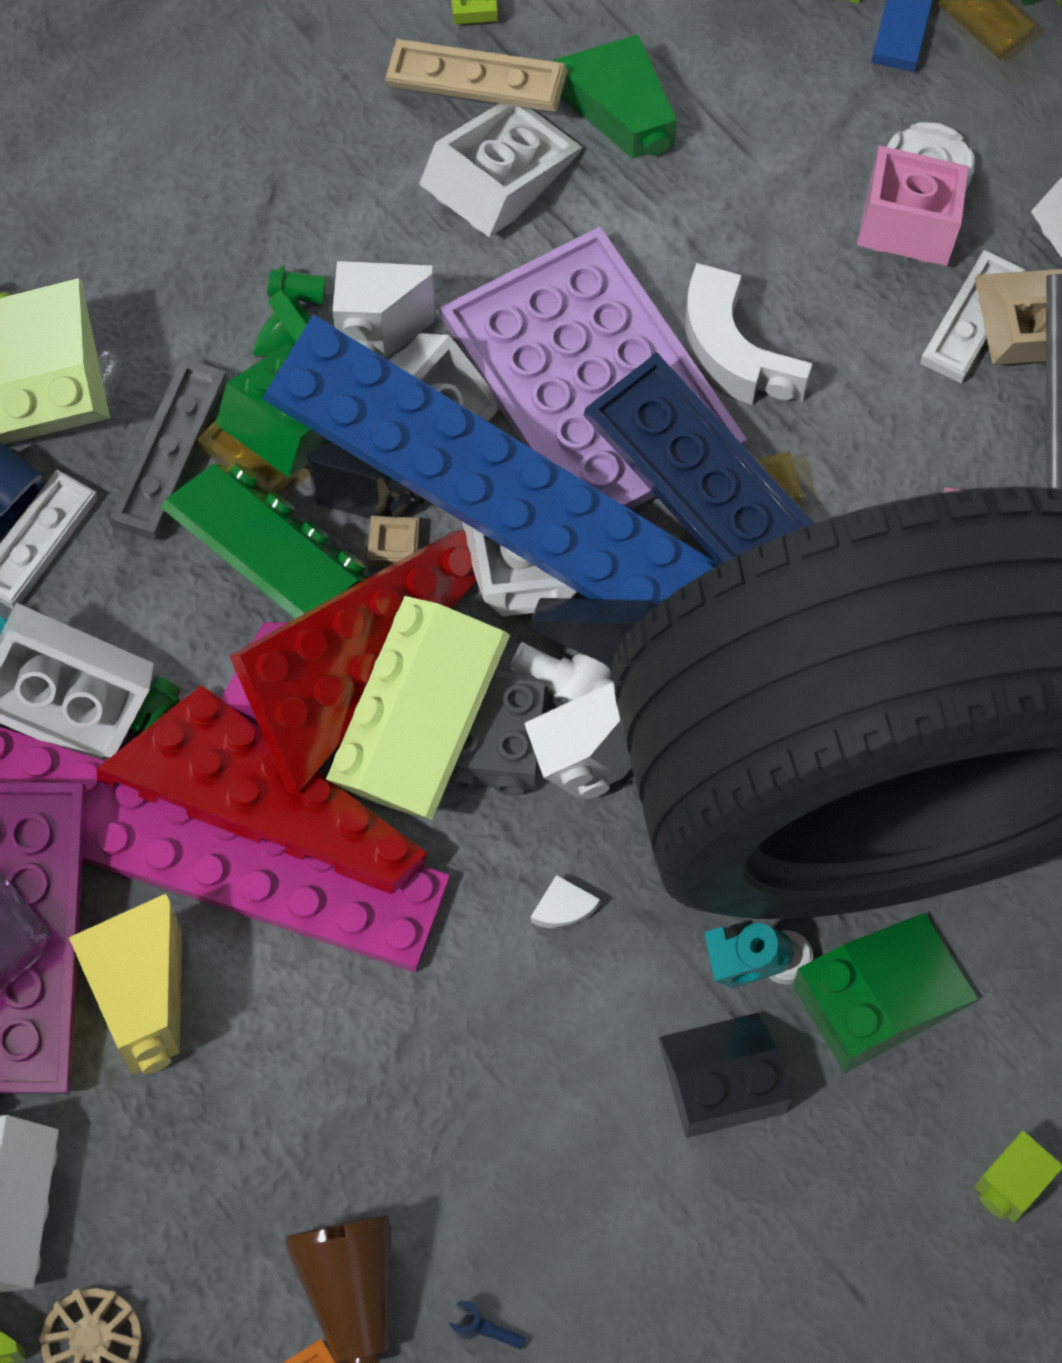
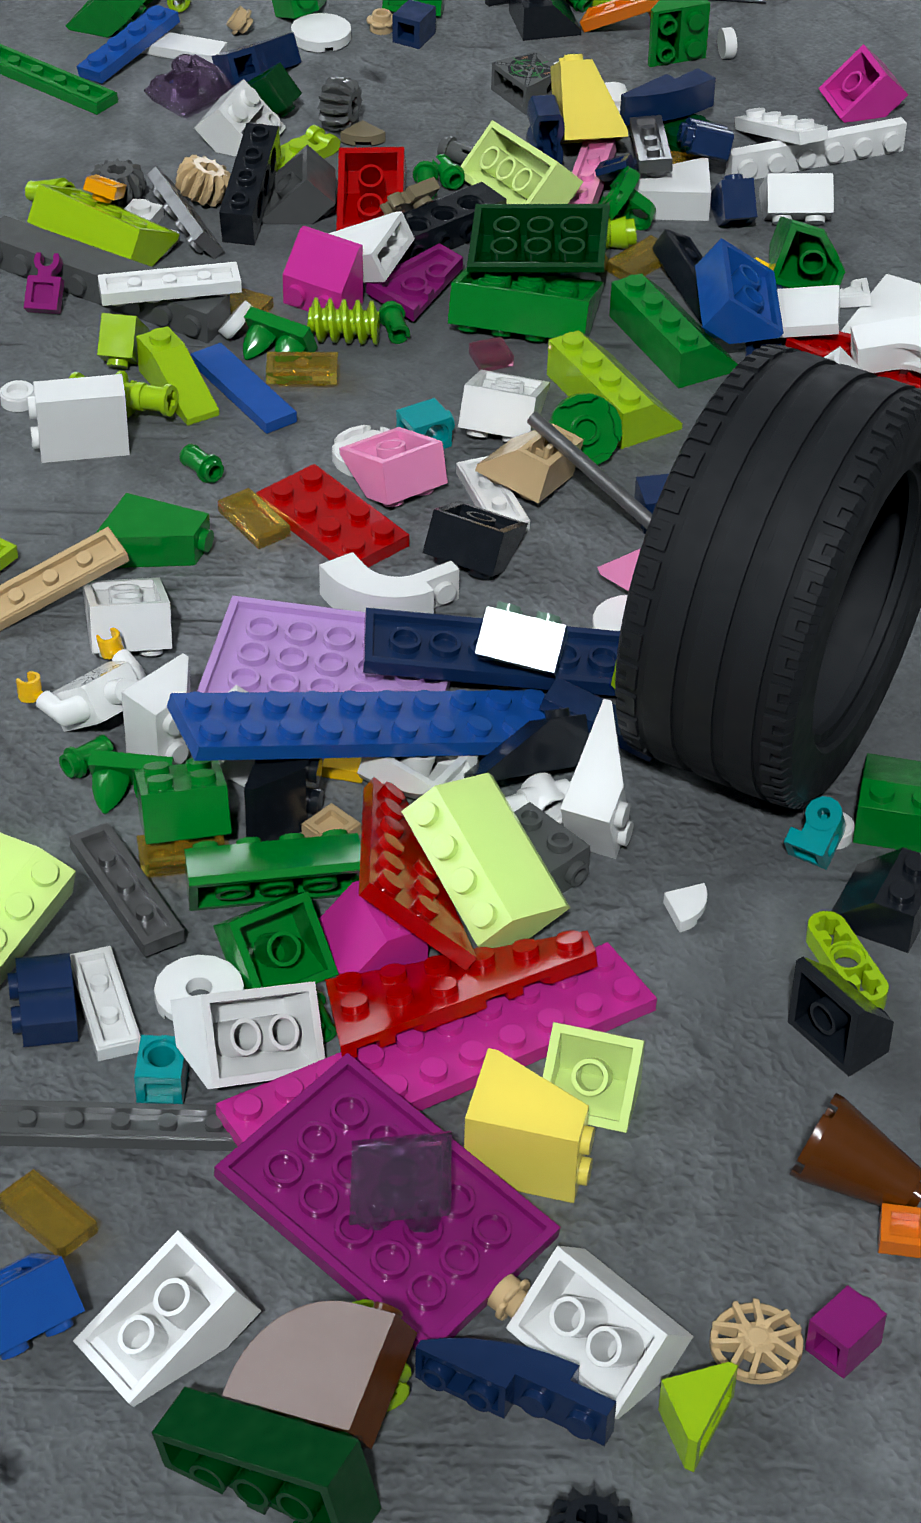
camera: 50 degrees left, 25 degrees down
(108, 574) = (193, 974): none -> white tile
(197, 618) = (277, 944): none -> green slope
(259, 991) = (597, 1070): none -> yellowish green slope
(364, 229) = (92, 696): none -> white torso
(521, 1142) = (837, 1017): none -> black slope
(584, 1122) = (845, 944): none -> lime beam
(732, 507) = (522, 639): none -> slope
(737, 152) = (254, 518): none -> clear yellow tile
(762, 58) = (208, 467): none -> green pin
(800, 215) = (333, 517): none -> red plate
(879, 351) = (473, 538): none -> black slope
(1003, 185) = (427, 419): none -> teal brick

